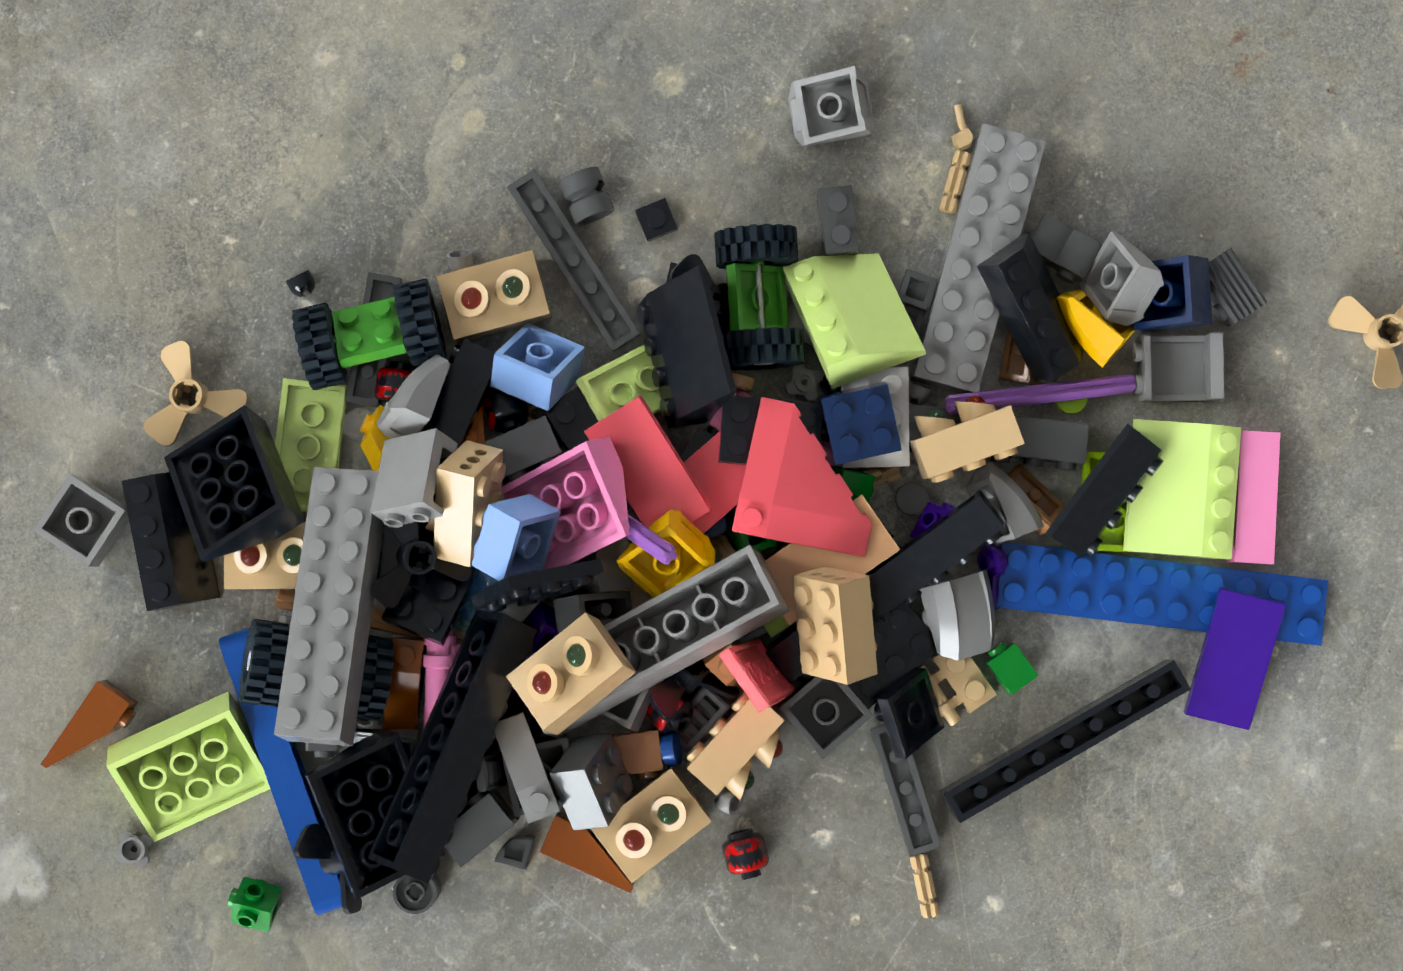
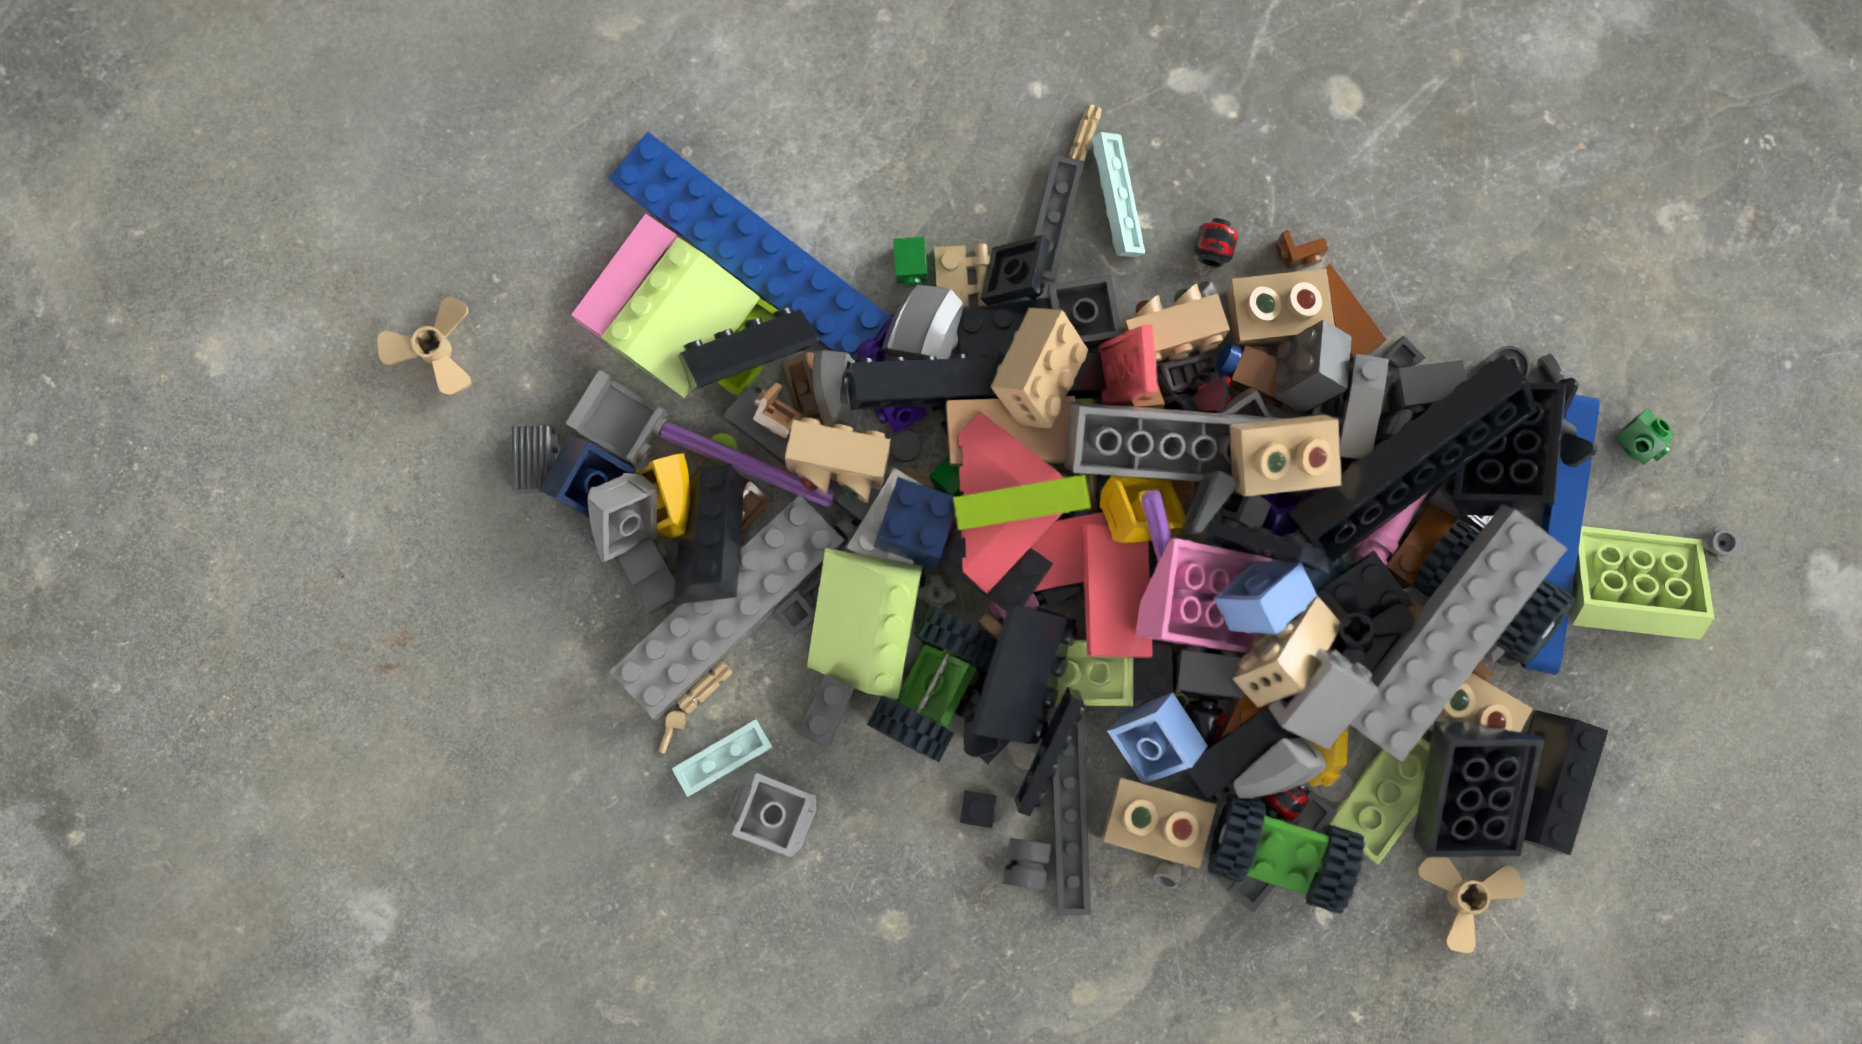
camera: 145 degrees left, 5 degrees down
(83, 521) = (1621, 842): light grey brick -> none
(99, 716) = (1696, 668): dark orange slope -> none
(302, 280) = (1316, 940): black hinge -> none
(375, 917) = (1550, 369): none -> dark grey tile
(615, 594) = (1210, 496): none -> dark grey slope
(625, 309) = (1045, 760): none -> black plate
(656, 892) = (1306, 254): none -> dark orange bracket
(778, 489) = (1021, 502): none -> lime tile
(860, 845) = (1118, 195): none -> light aqua plate
(902, 130) = (722, 758): none -> light aqua plate
(1044, 449) = (774, 413): none -> medium nougat bracket
(1064, 740) = (903, 177): black brick -> none
(1234, 658) = (724, 161): dark purple tile -> none

